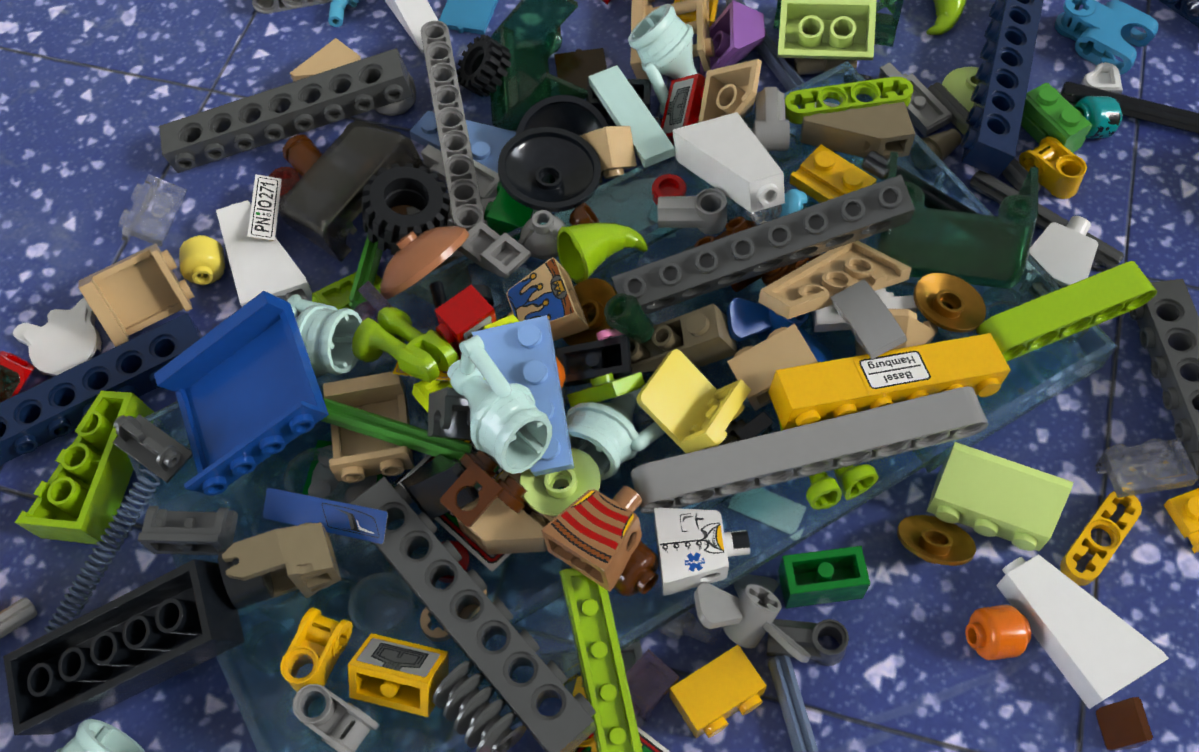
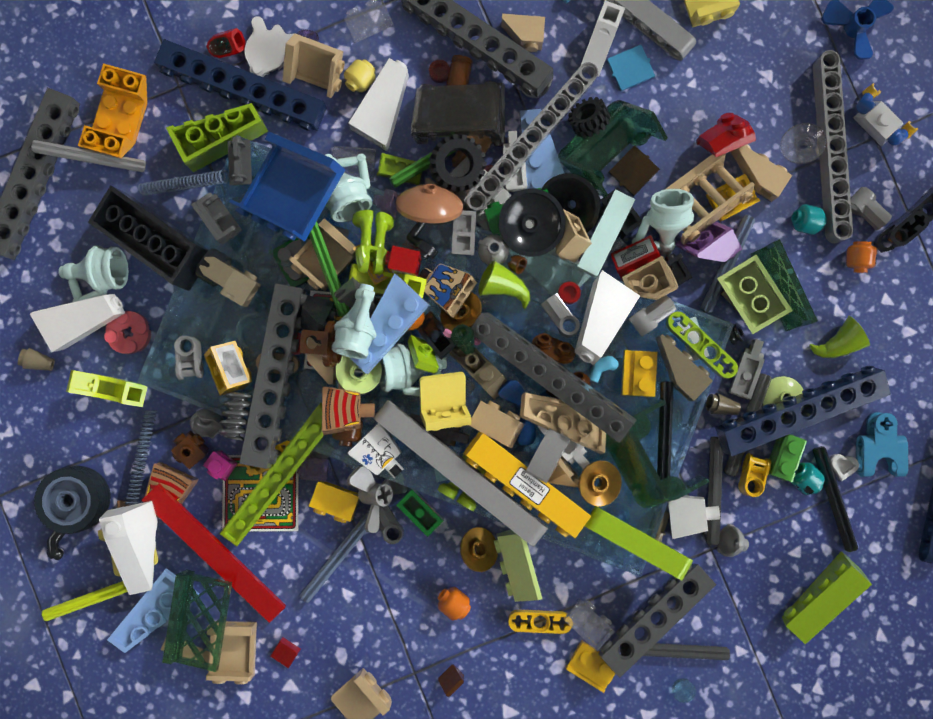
camera: 45 degrees right, 25 degrees up
(264, 207) = (410, 81): white sticker -> none
(317, 642) = (213, 323): yellow piece -> none
(335, 516) = (266, 275): blue sticker -> none
(1077, 631) = (479, 641): white slope -> none
(1121, 235) = (732, 541): none -> light grey piece

